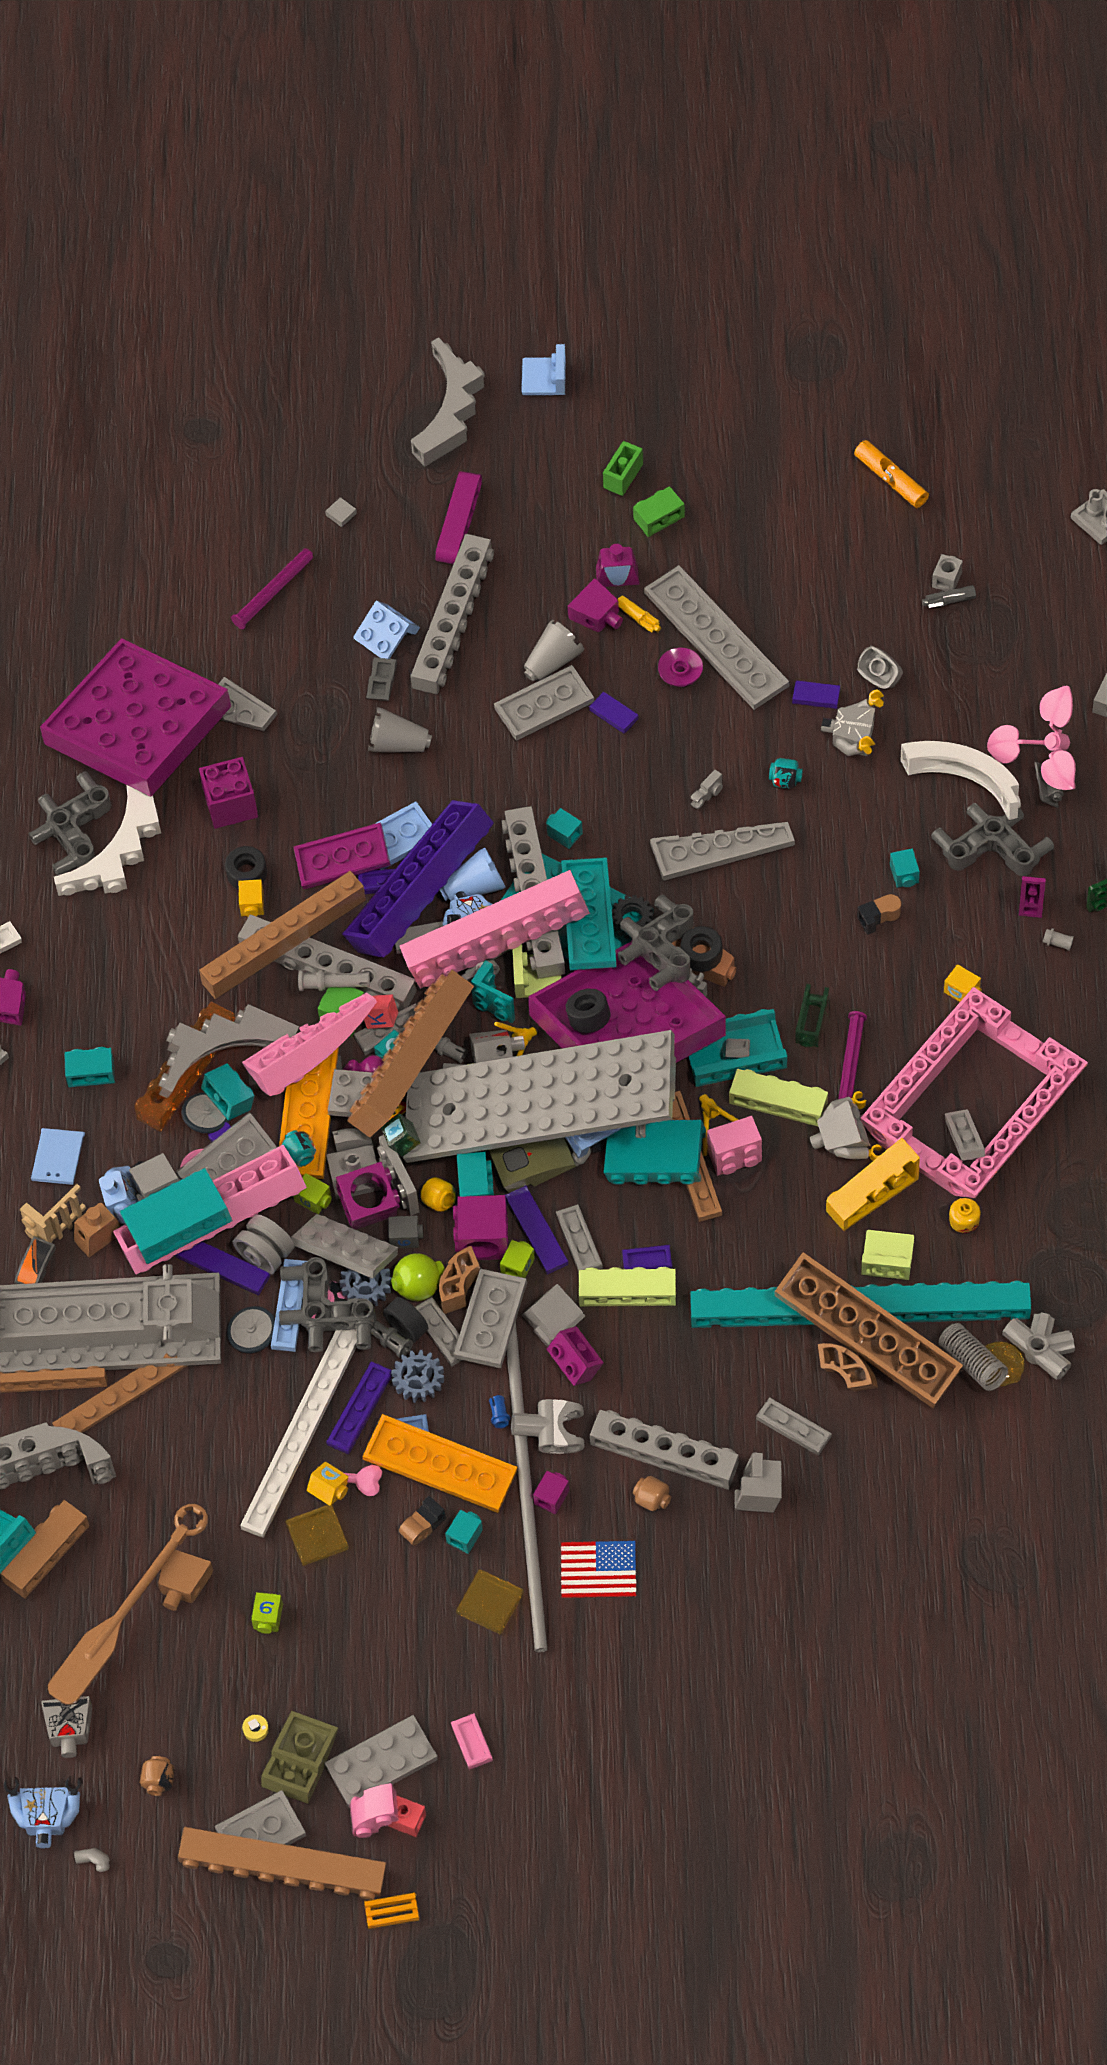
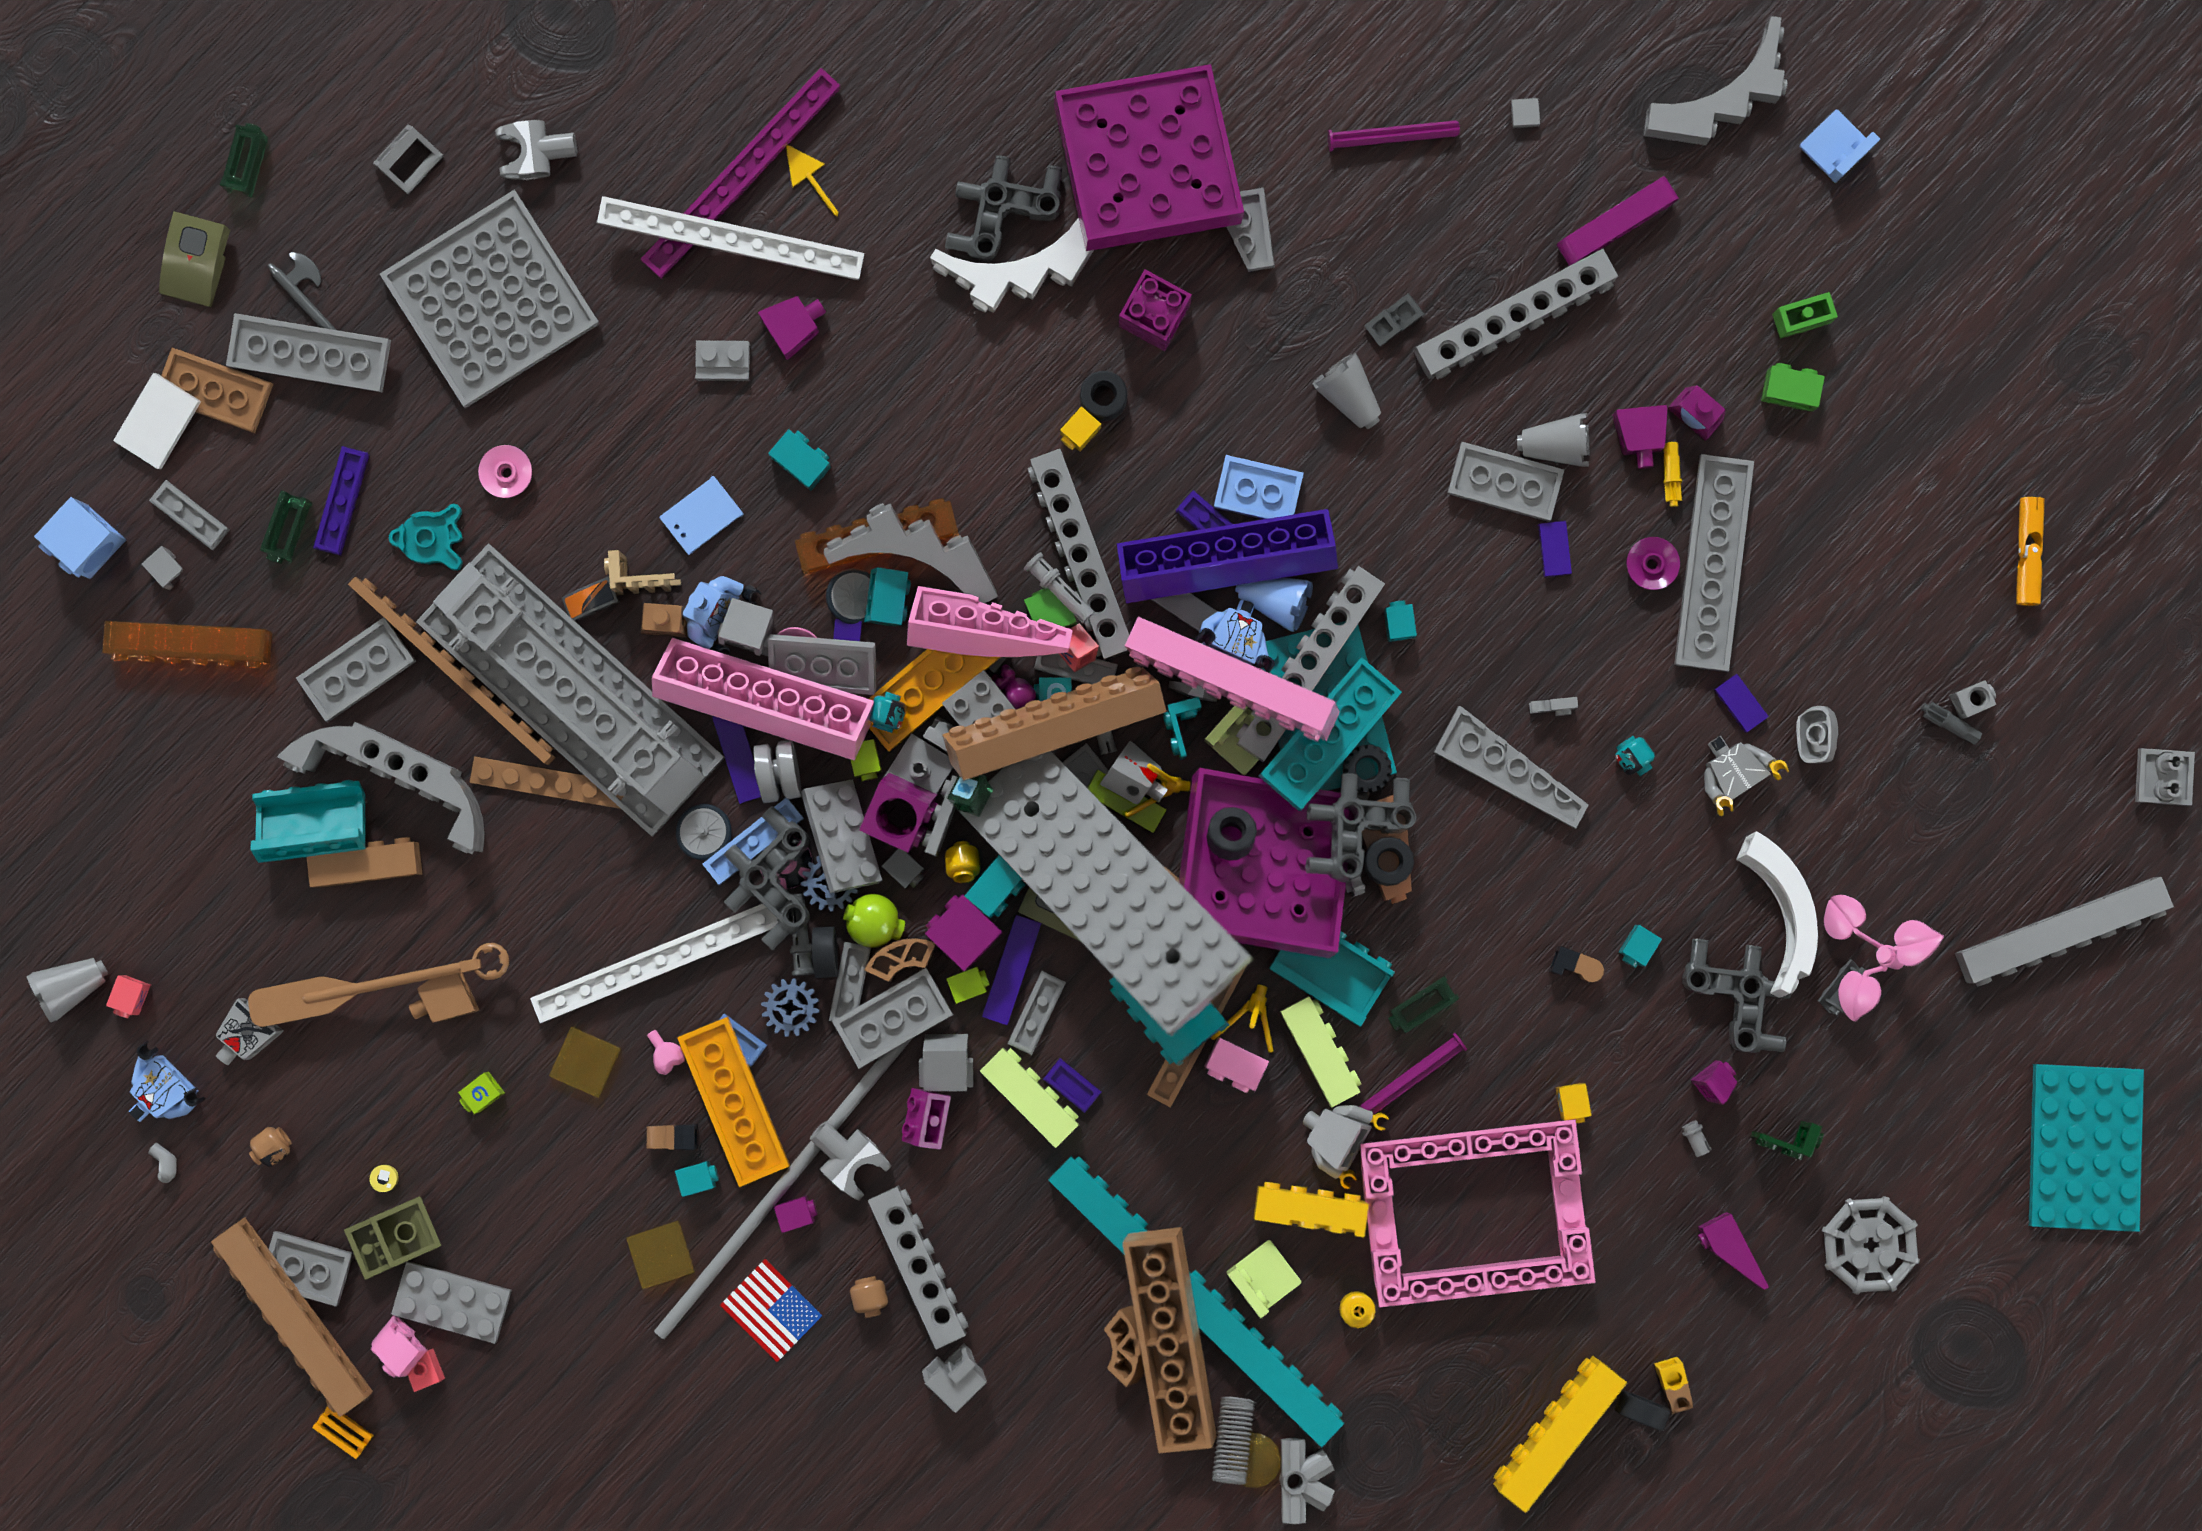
camera: 40 degrees right, 25 degrees up
(176, 1216) = (722, 683): teal panel -> none
(282, 935) = (1062, 500): medium nougat brick -> none
(328, 1483) = (630, 1032): yellow brick -> none
(336, 855) = (1192, 464): magenta tile -> none
(359, 1408) = (722, 985): dark purple tile -> none
(384, 630) = (1445, 273): light blue bracket -> none
(471, 1741) = (534, 1355): bright pink tile -> none
(500, 1417) = (824, 1102): blue pin -> none
(737, 1048) = (1332, 974): light grey tile -> none
(793, 1426) = (1040, 1346): light grey tile -> none
(964, 1135) = (1429, 1242): light grey plate -> none

